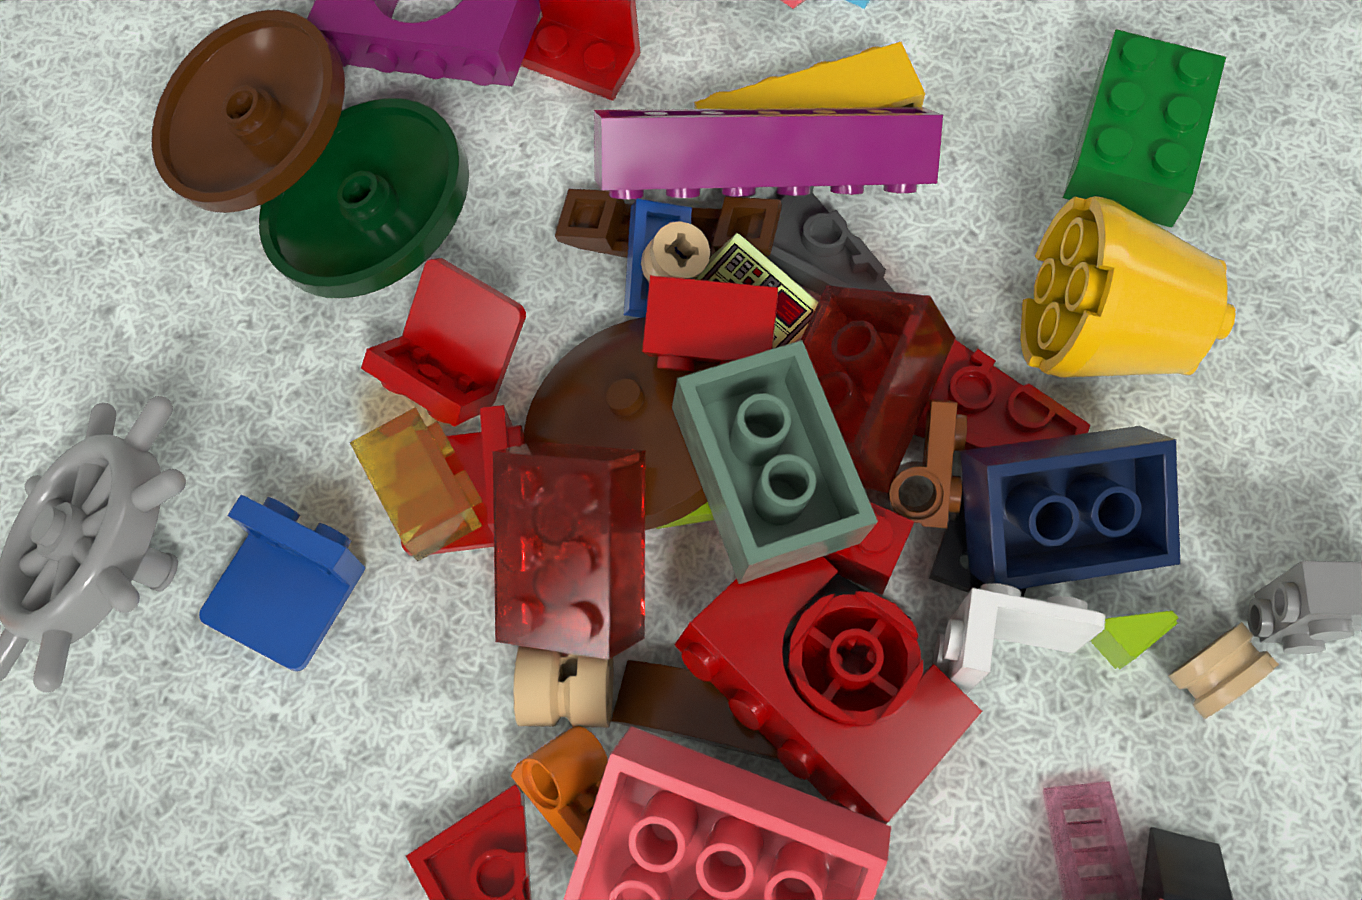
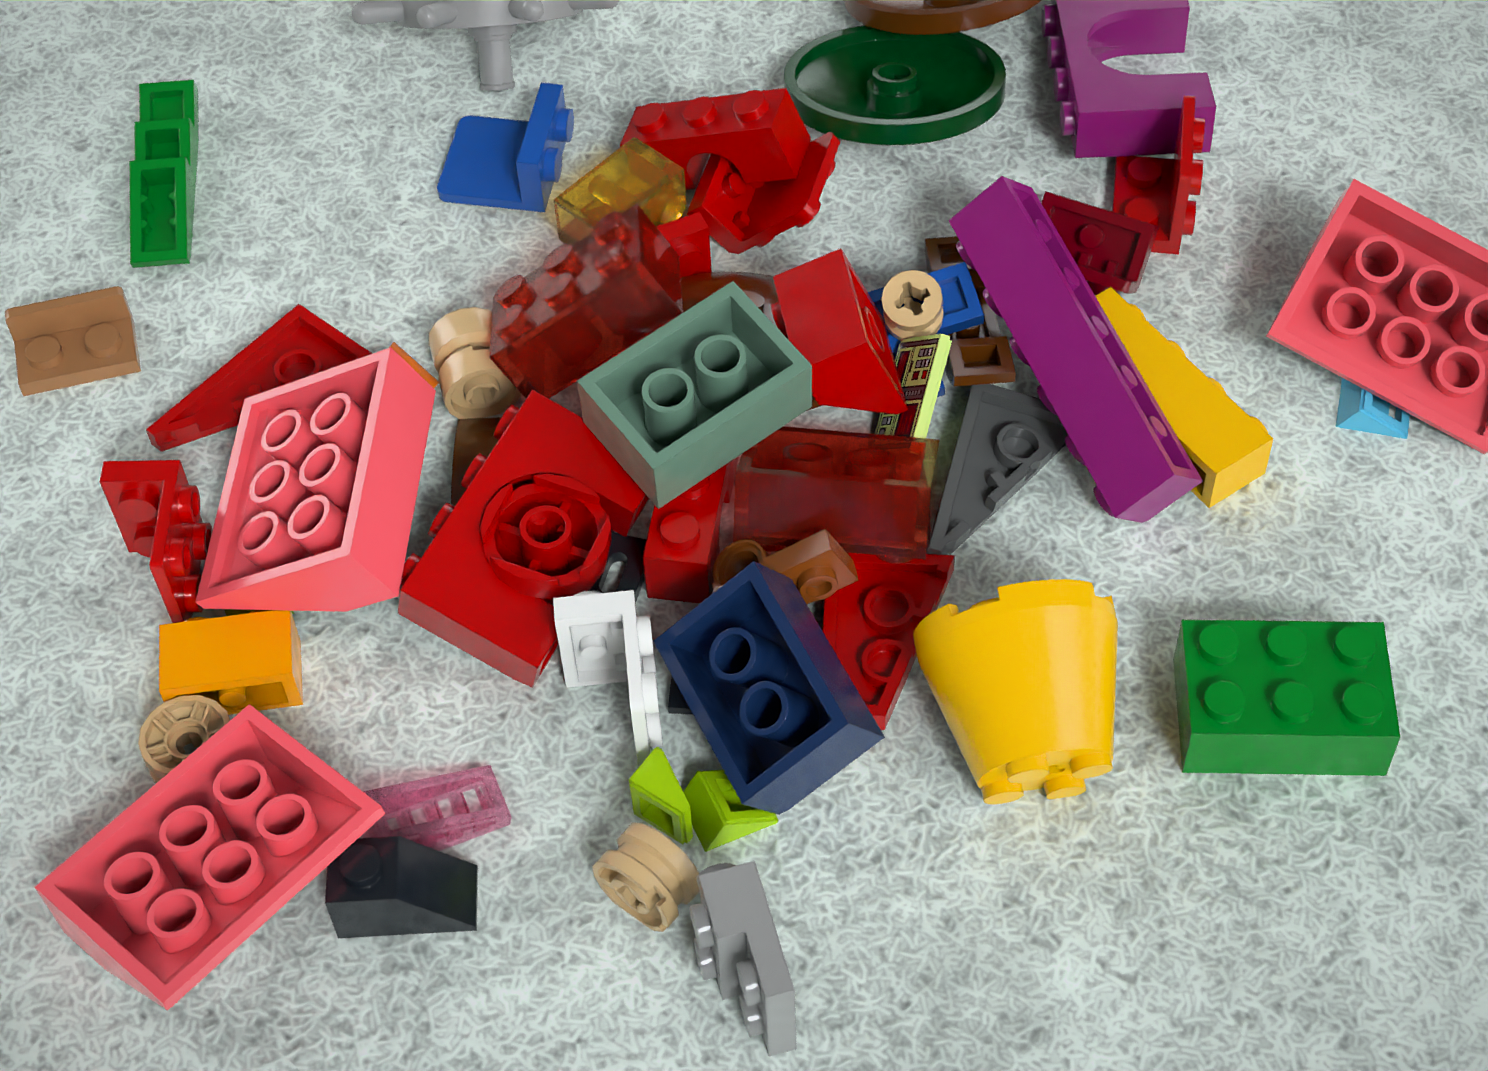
camera: 70 degrees right, 15 degrees down
(389, 337) = (750, 129): none -> red arch
(627, 84) = (1103, 243): none -> dark red bracket
(1139, 592) = (718, 812): none -> lime slope

